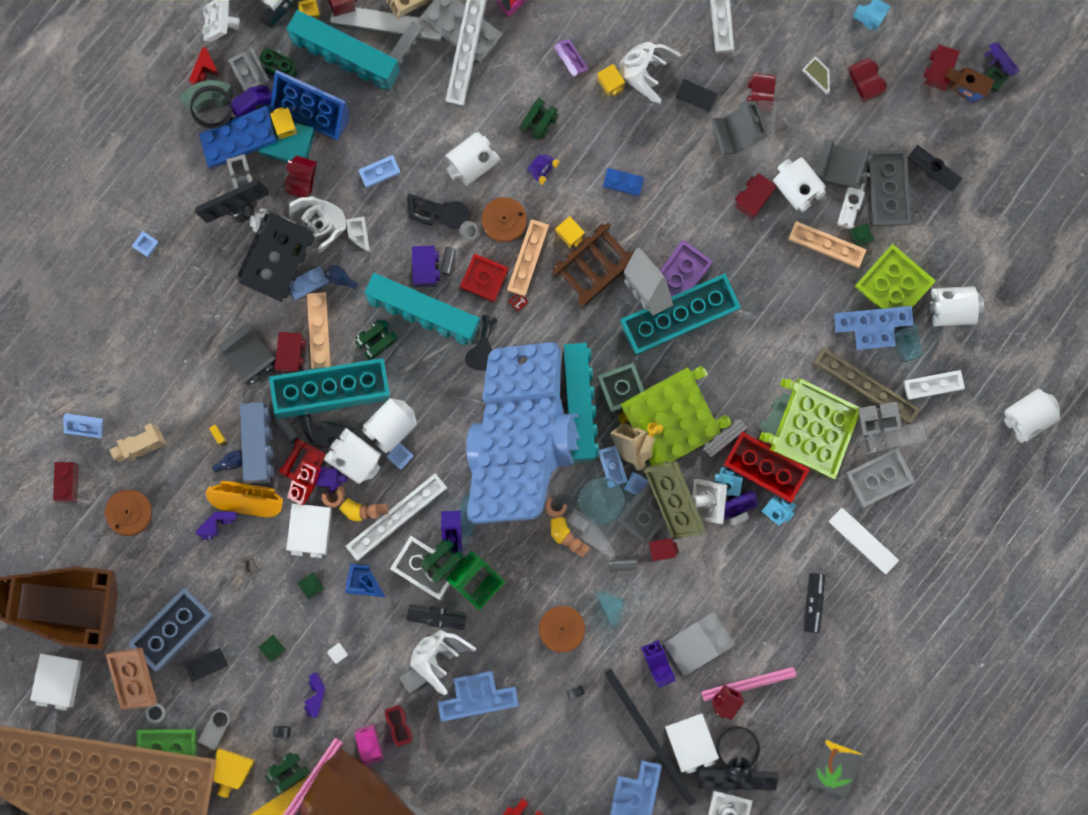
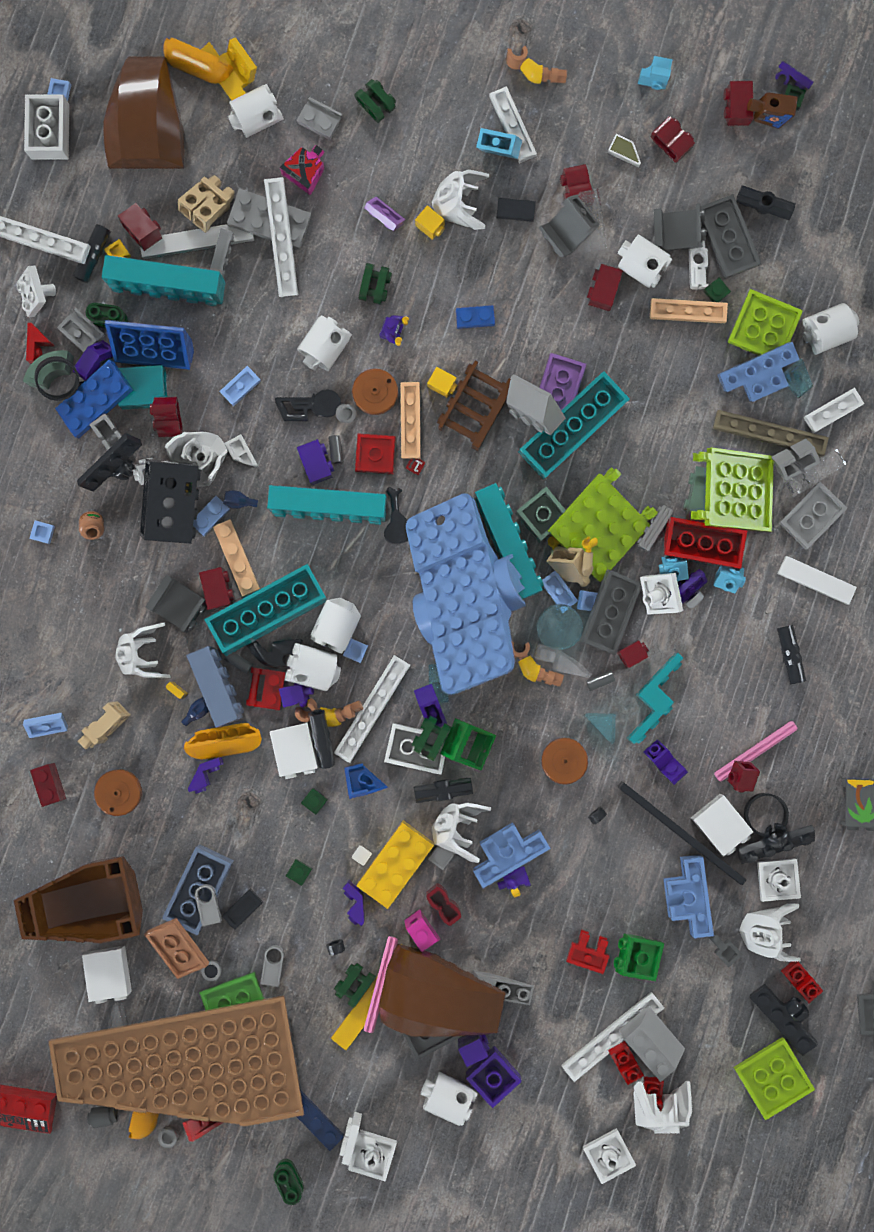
camera: 15 degrees left, 5 degrees up
(175, 651) = (208, 911): none -> light grey piece
(184, 385) = (127, 653): none -> white piece
(194, 253) = (91, 525): none -> nougat head
(231, 771) = (301, 1000): yellow torso -> none
(283, 123) = (131, 370): yellow brick -> none
(302, 486) = (275, 707): red slope -> none
(338, 527) = (321, 738): none -> black axle
(366, 671) = (395, 864): none -> yellow brick
(378, 329) = (283, 550): dark green brick -> none
(475, 726) = (515, 880): none -> dark purple piece
(669, 600) = (655, 699): none -> teal bracket
(674, 500) = (630, 604): olive tile -> none
(699, 644) = (697, 730): light grey slope -> none
(701, 29) = (499, 143): none -> medium azure brick

